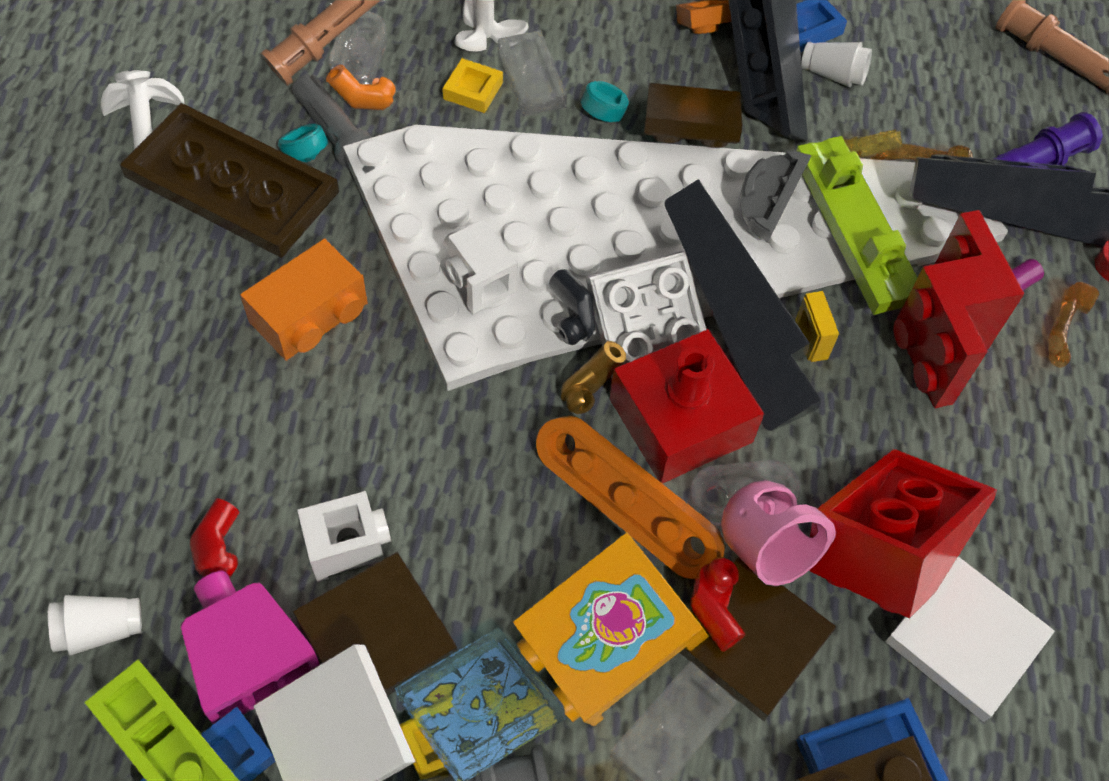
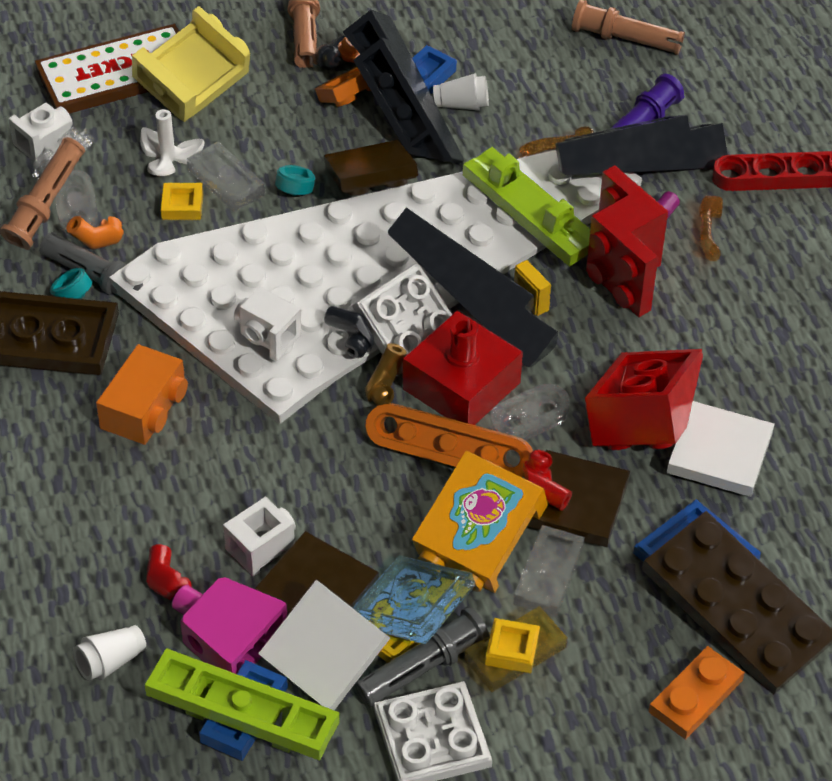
camera: 20 degrees left, 10 degrees down
(765, 533) = (555, 427): bright pink helmet -> none
(769, 189) = (456, 202): dark grey plate -> none
(875, 143) = (519, 144): clear yellow tile -> none

